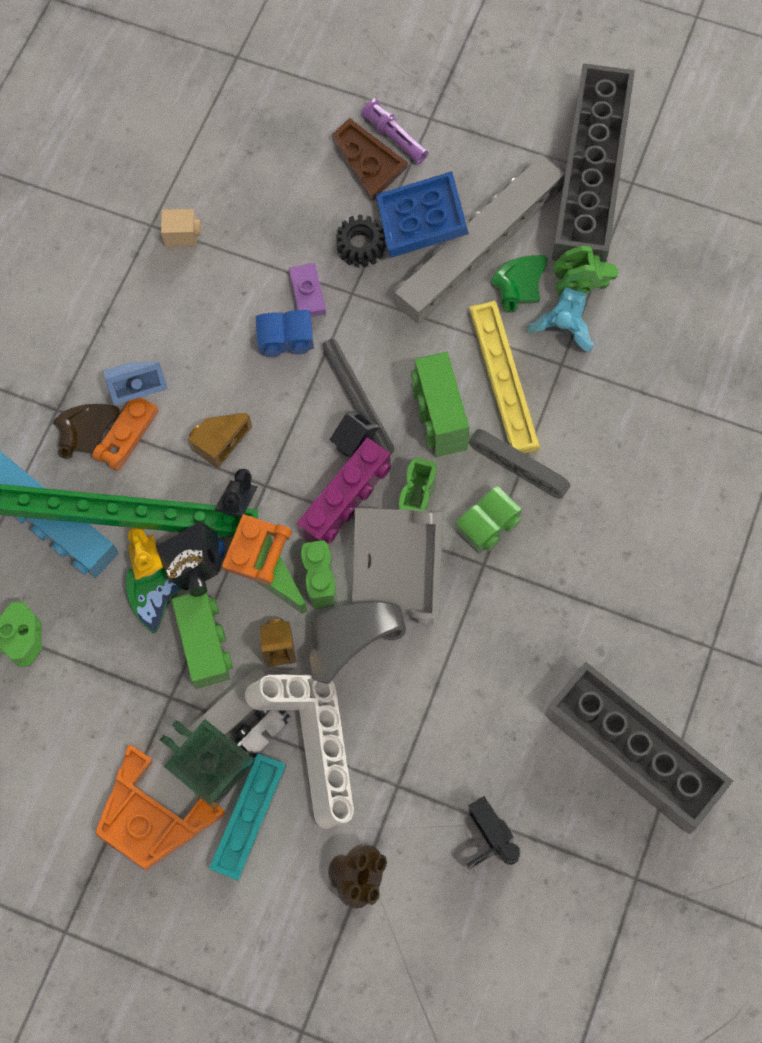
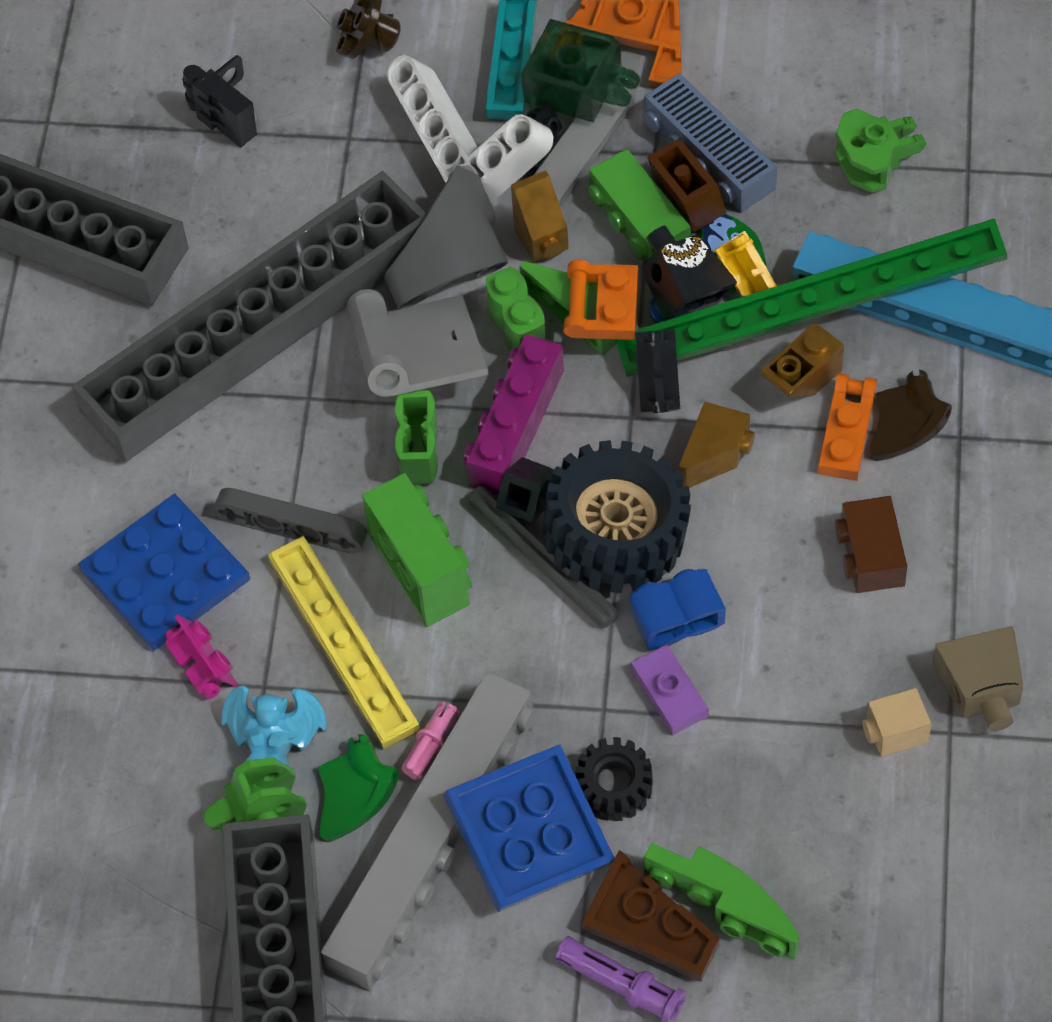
camera: 165 degrees right, 10 degrees down
(115, 242) = (982, 675): none -> dark tan torso
(128, 682) = (726, 153): none -> sand blue brick
(134, 380) = (865, 470): medium blue slope -> none
(138, 471) = (806, 363): none -> pearl gold slope
(146, 337) = (872, 544): none -> reddish brown brick
(160, 638) = (686, 184): none -> reddish brown brick
(273, 391) = (623, 487): none -> black wheel
(315, 155) = (739, 901): none -> bright green slope
(465, 292) = (430, 741): none -> bright pink axle
(489, 519) = (312, 439): bright green brick -> none
(506, 624) = (248, 317): none -> dark grey brick
(594, 378) = (210, 665): none -> dark pink hinge
(612, 457) = (164, 569): none -> blue plate

